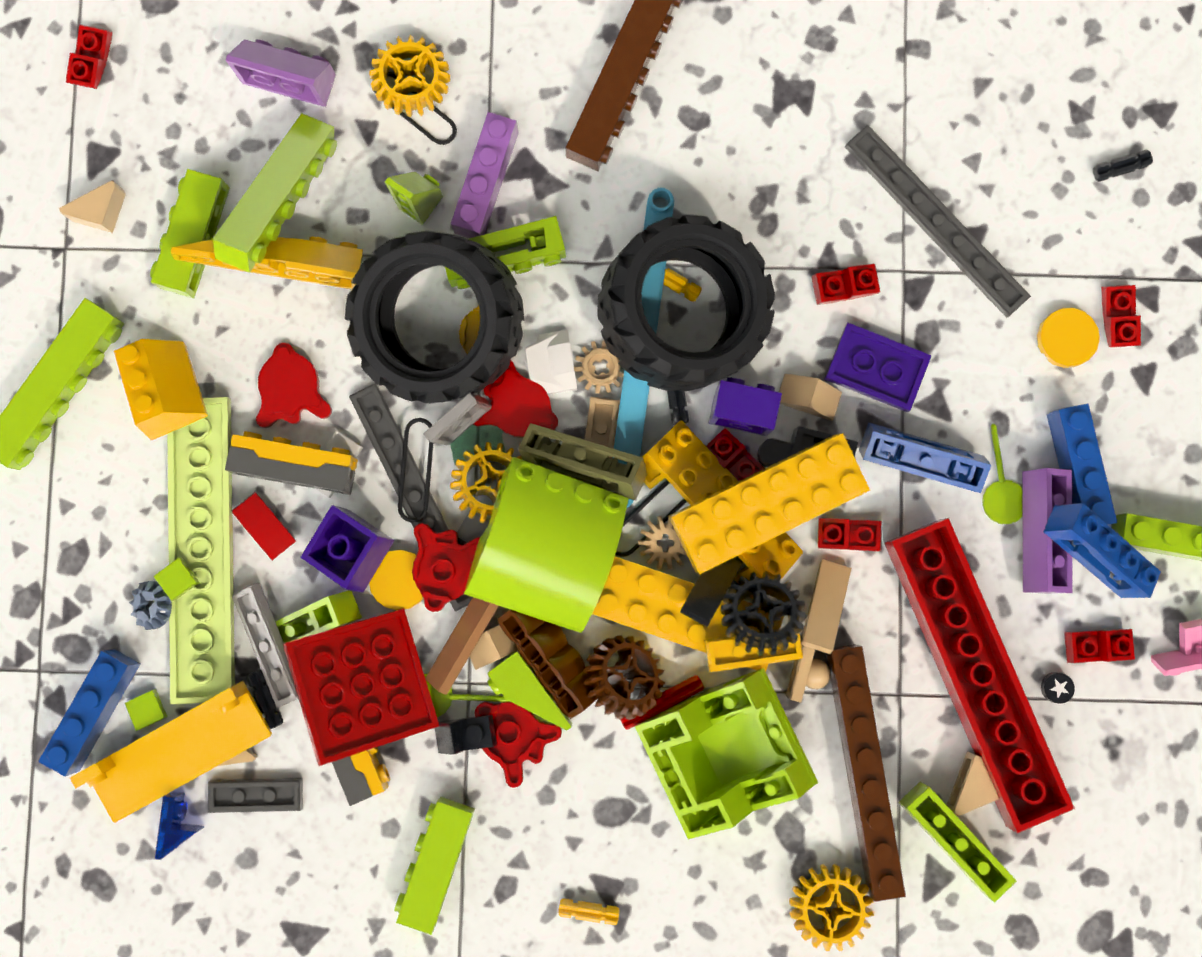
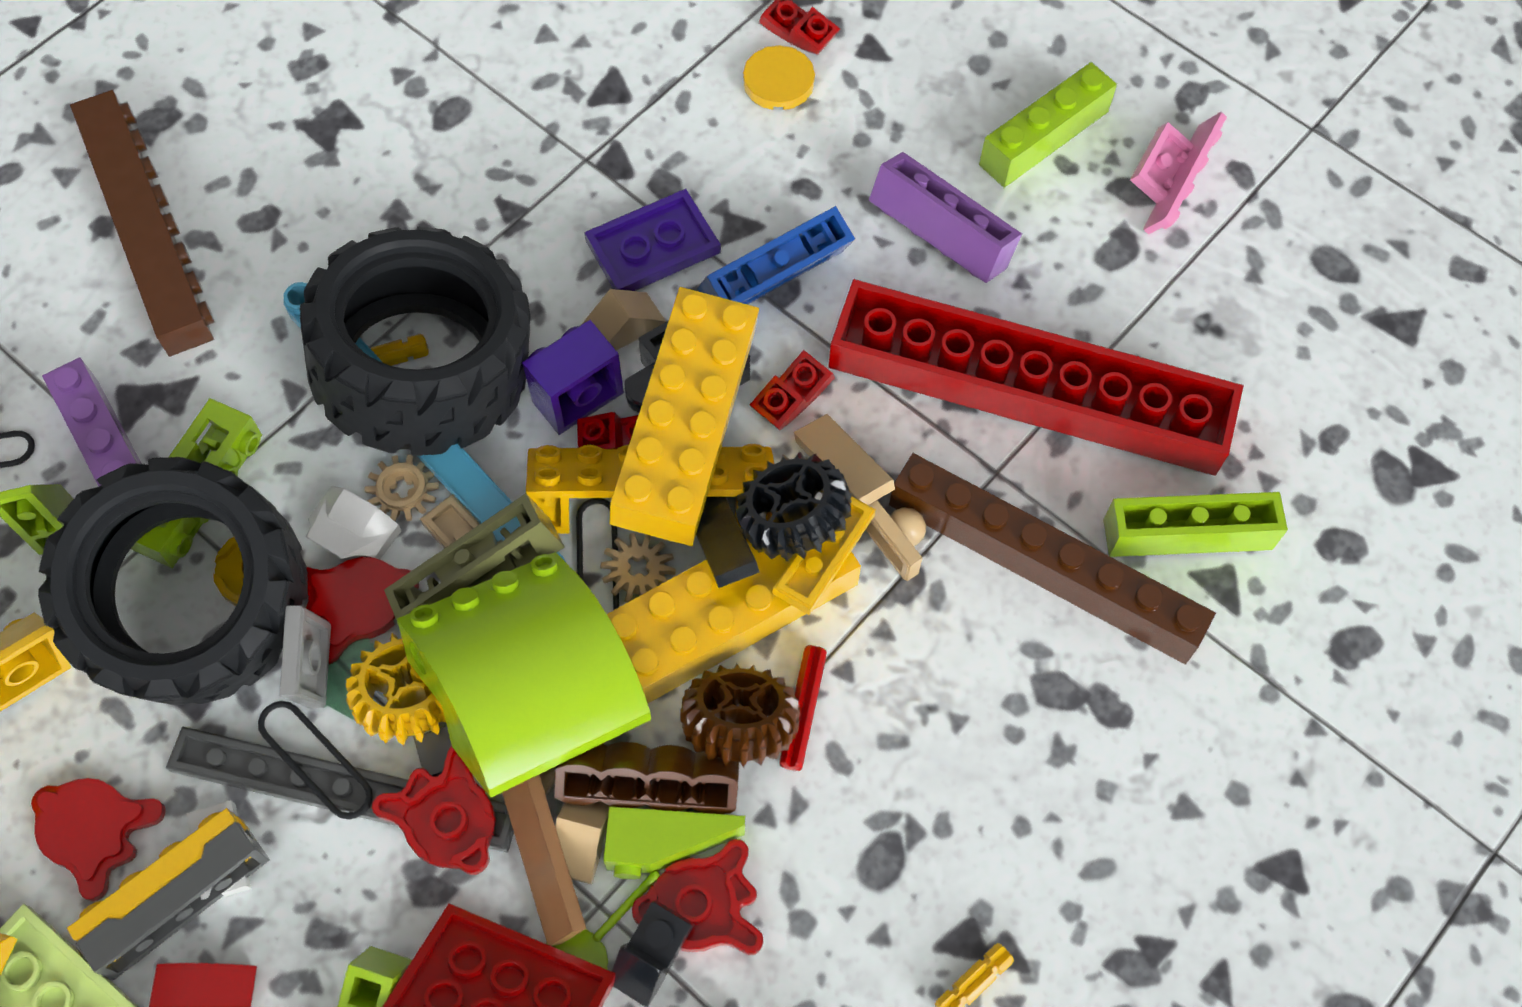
camera: 50 degrees left, 20 degrees down
(347, 549) = (320, 904): dark purple brick -> none
(394, 581) = (409, 890): yellow tile -> none
(678, 402) = (509, 443): black axle -> none
(726, 754) = (914, 677): lime slope -> none
(844, 909) = (1186, 718): yellow gear -> none
(846, 284) = (549, 212): red slope -> none
(937, 221) = (567, 98): dark grey tile -> none
(972, 787) = (1144, 465): tan slope -> none
(1002, 498) = (879, 238): lime piece -> none
(1057, 687) = (1108, 326): black tile -> none
(1079, 451) = (880, 134): blue brick -> none
(1099, 645) = (1096, 262): red slope -> none
(1102, 551) = (1002, 178): blue brick -> none

